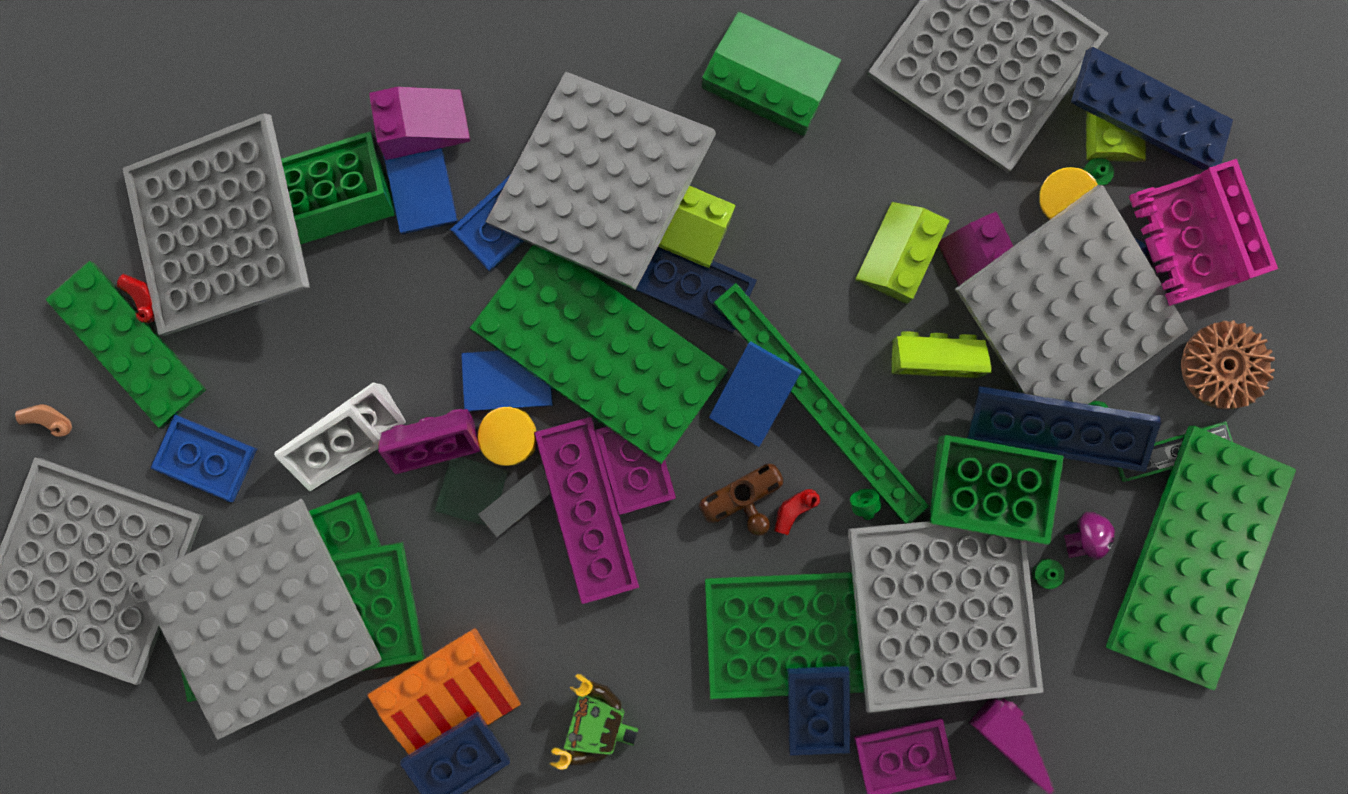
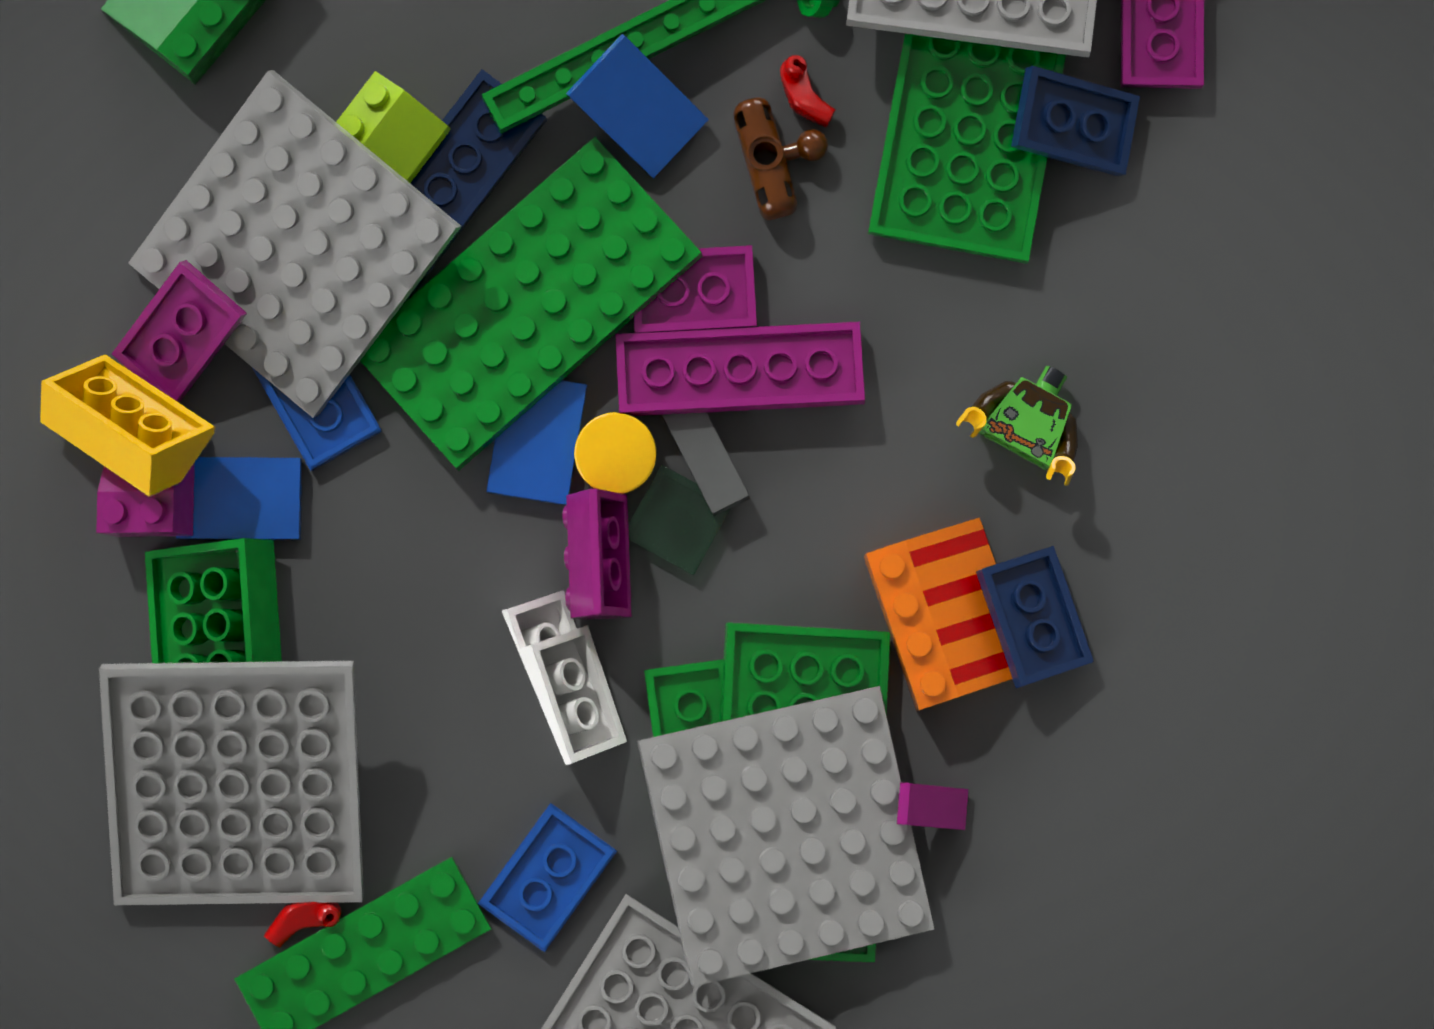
camera: 80 degrees left, 0 degrees up
(303, 718) = (932, 806): none -> magenta tile
(447, 93) = (124, 423): none -> yellow slope
(521, 116) = (179, 332): none -> magenta plate

